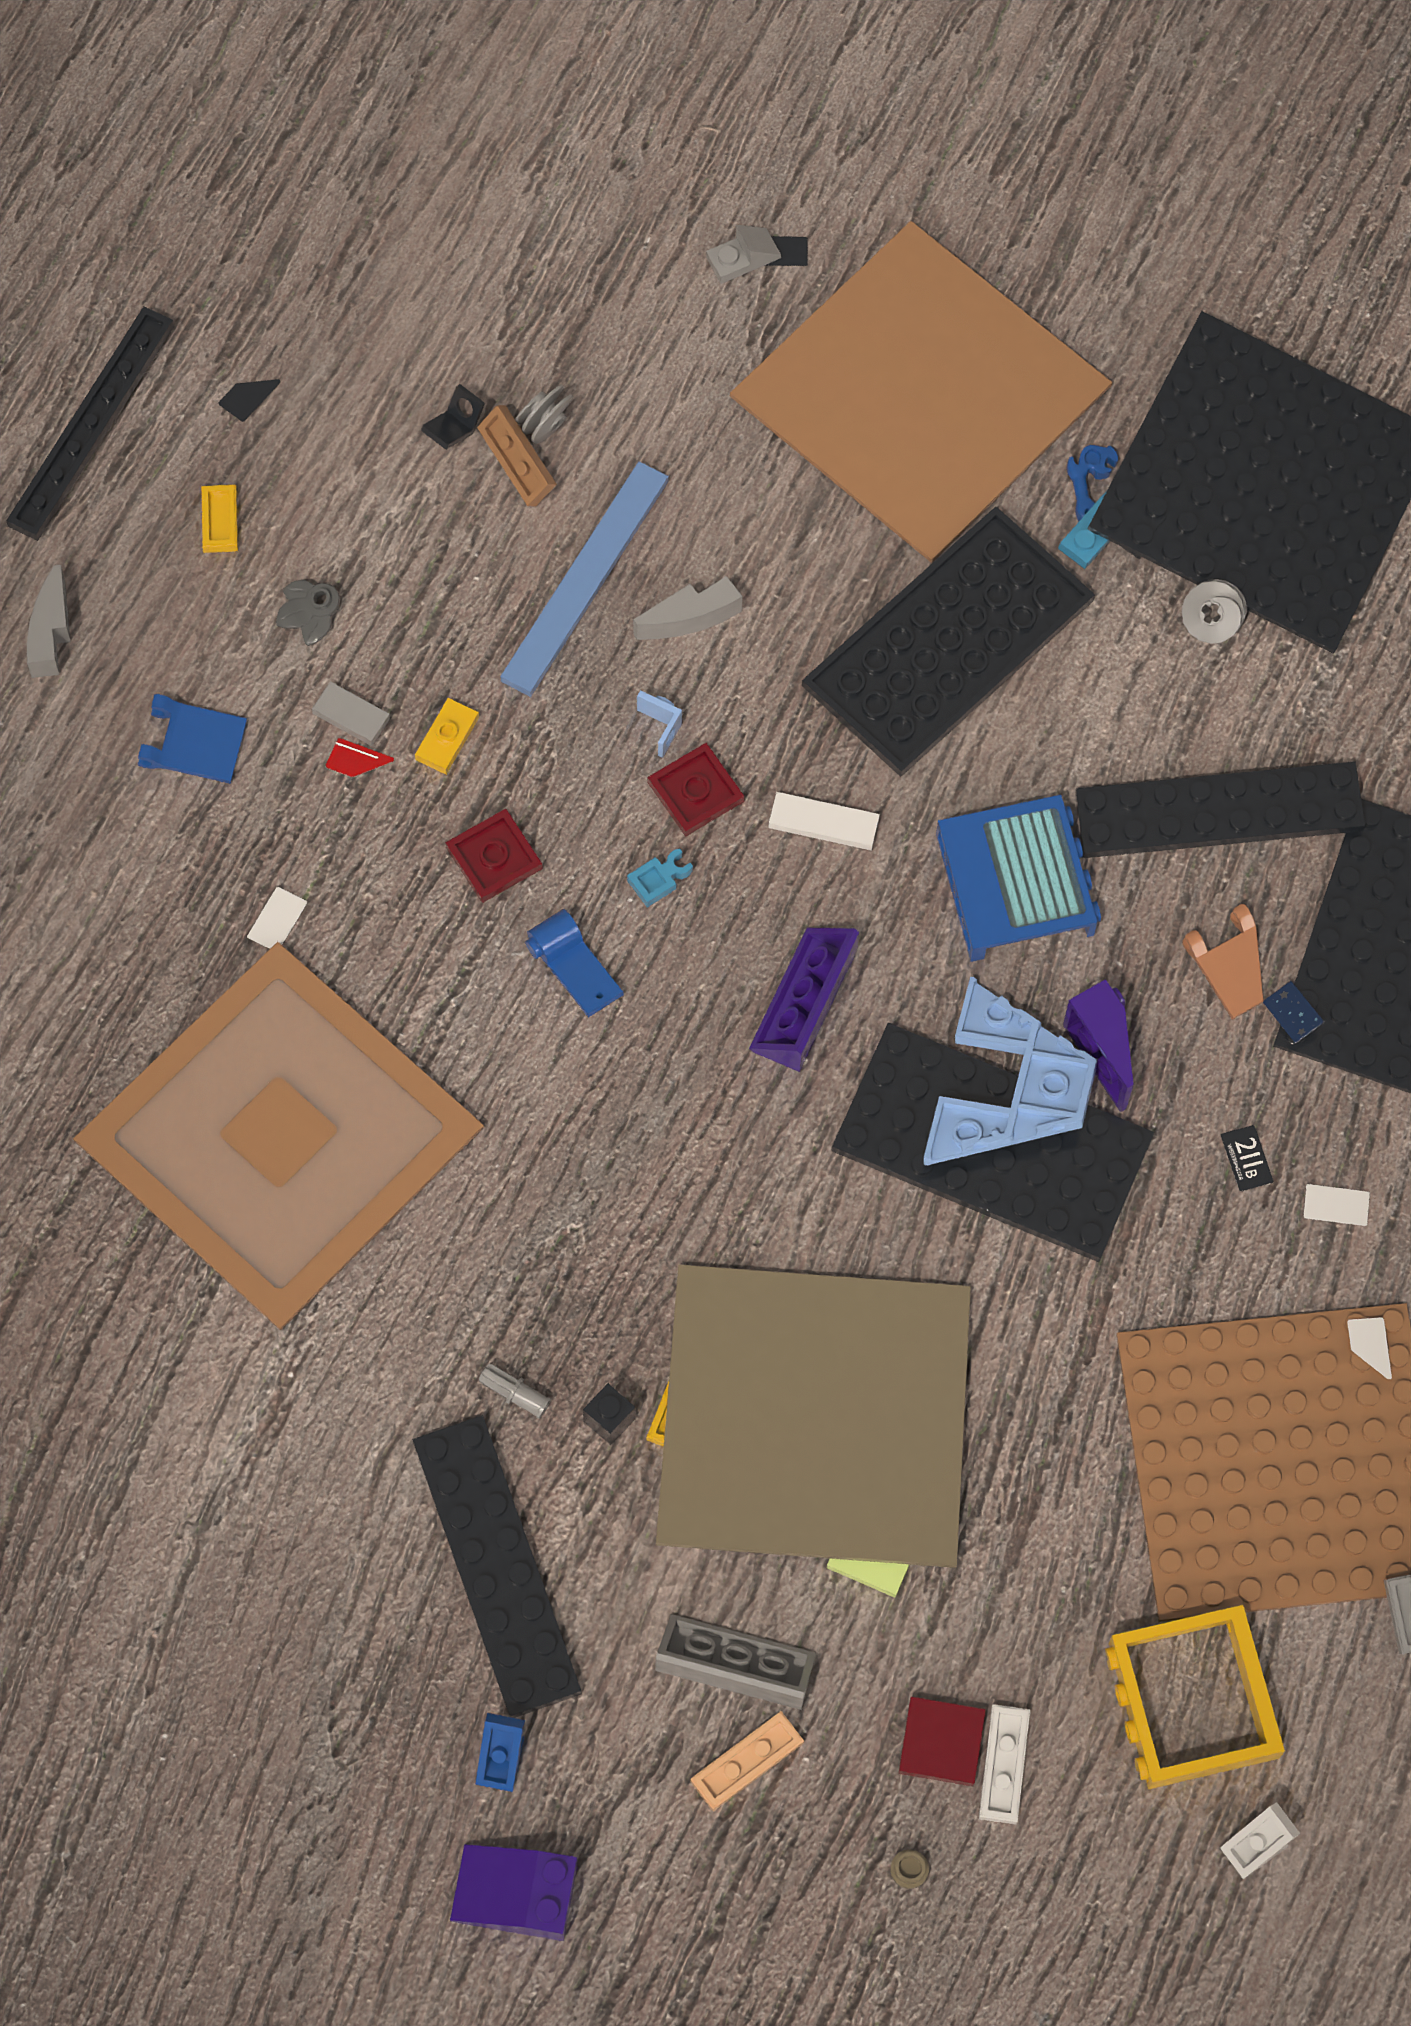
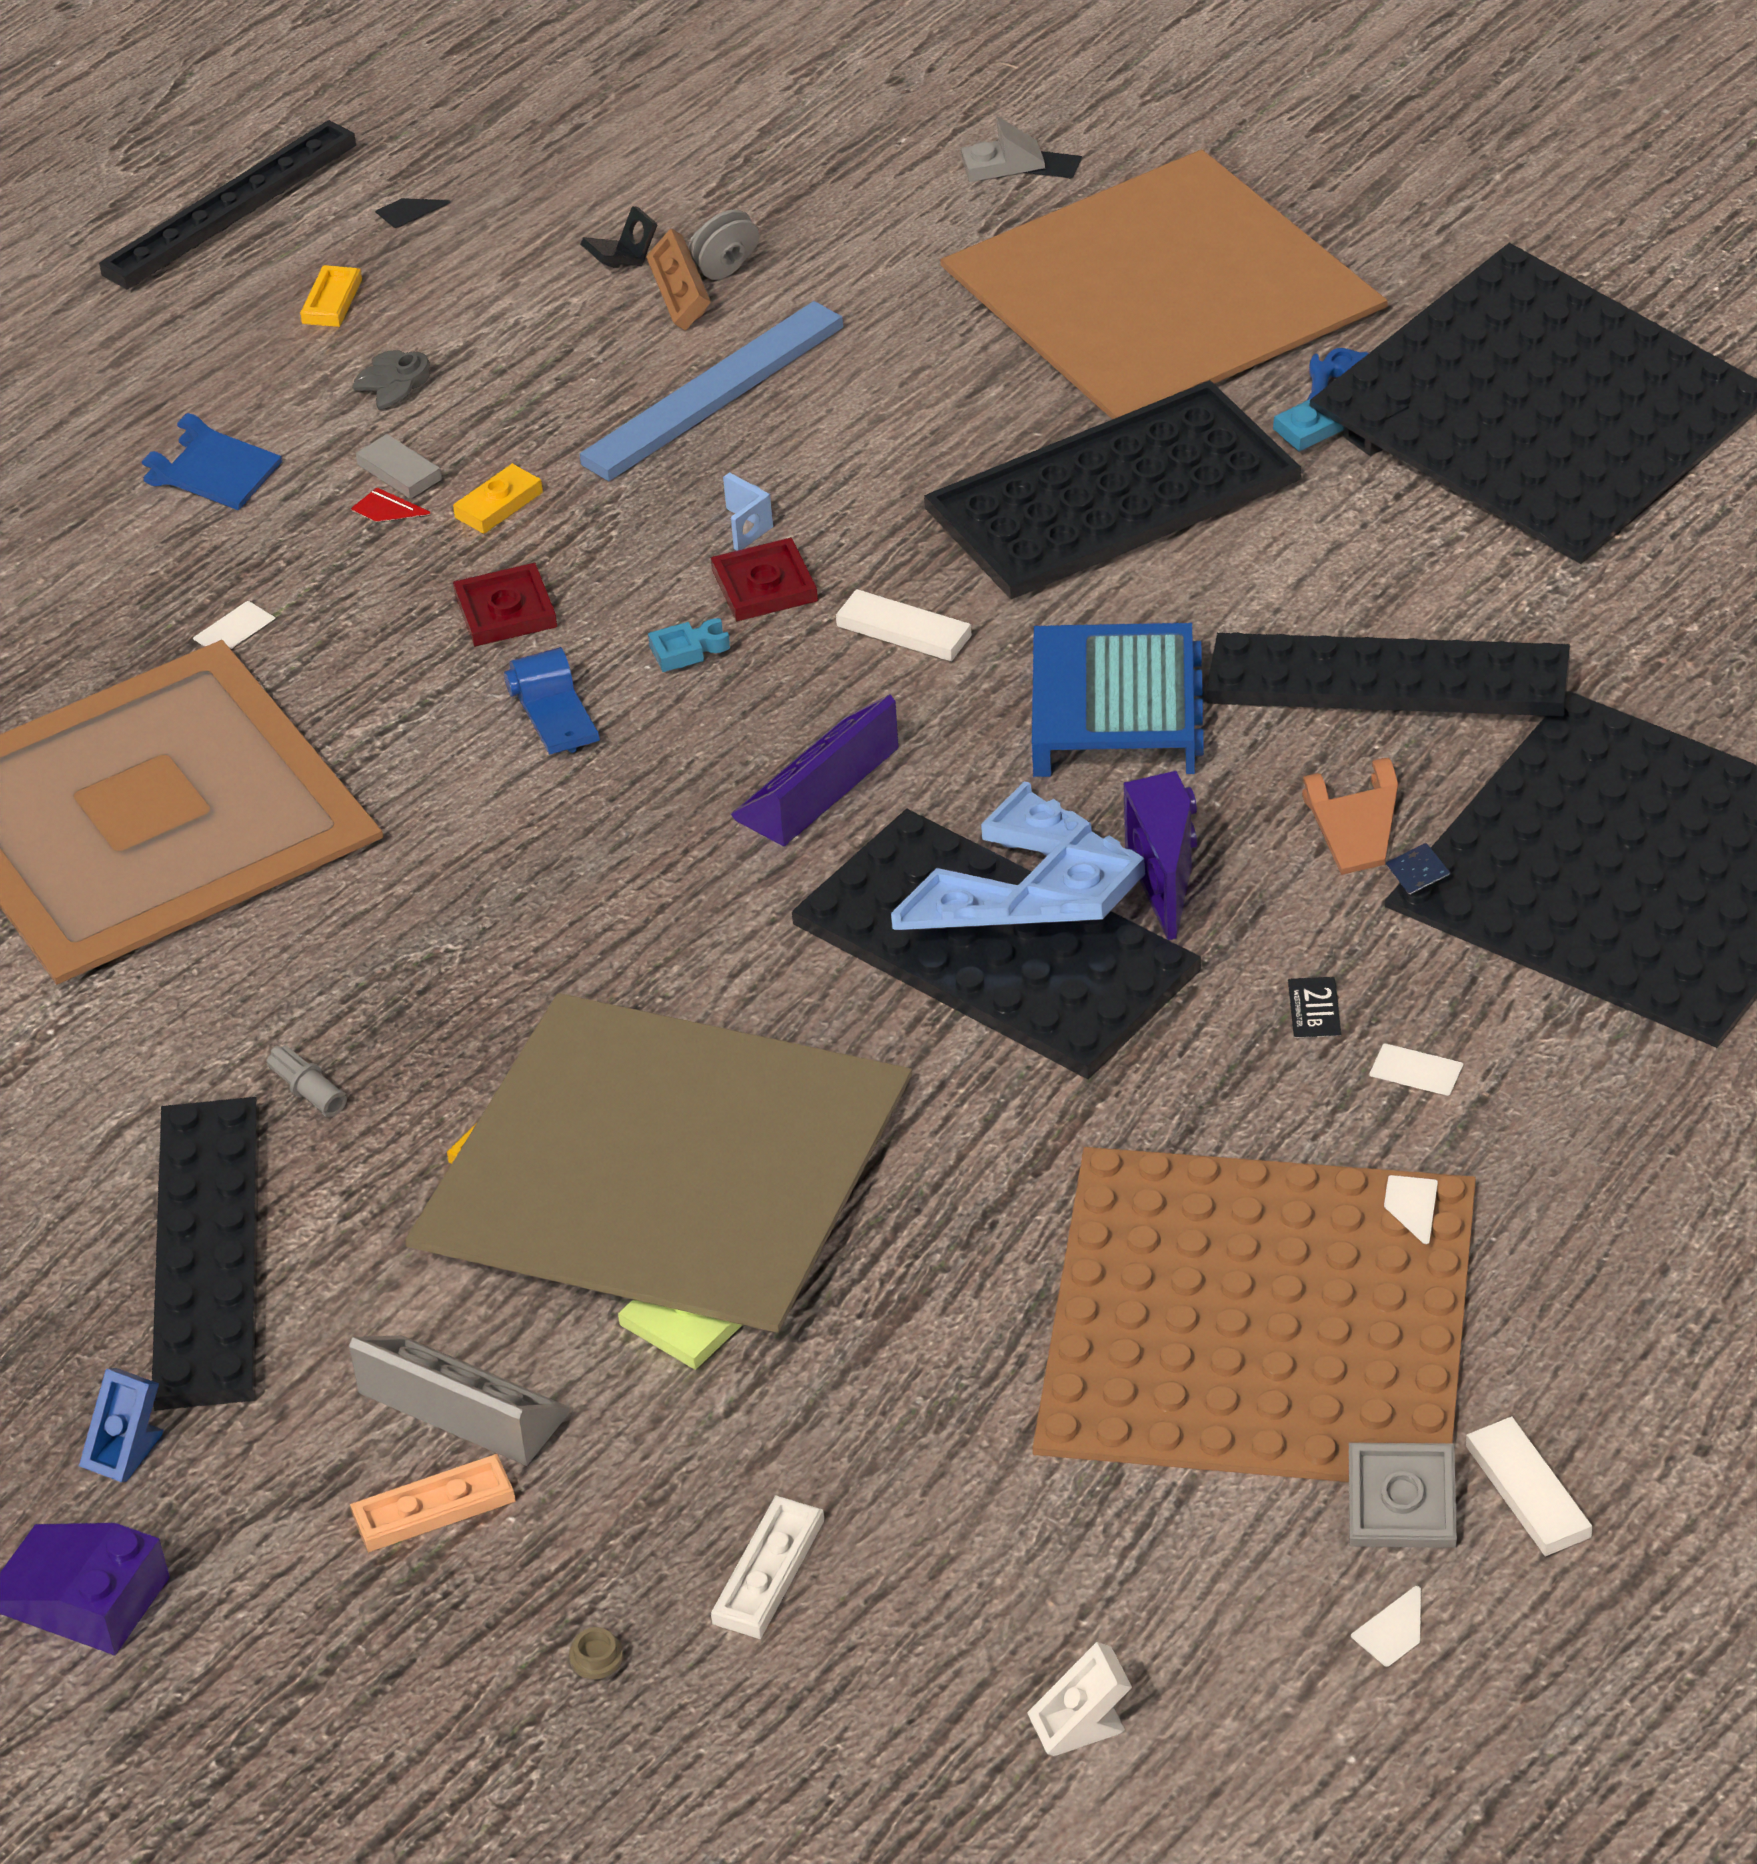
camera: 20 degrees right, 25 degrees down
(48, 625) = (101, 350): light grey slope -> none
(609, 1414) = (408, 1115): black brick -> none
(689, 611) = (816, 425): light grey slope -> none
(942, 1741) = (694, 1527): dark red tile -> none
(1231, 608) = (1456, 506): light grey piece -> none
(1254, 1685) = (1044, 1607): yellow window -> none

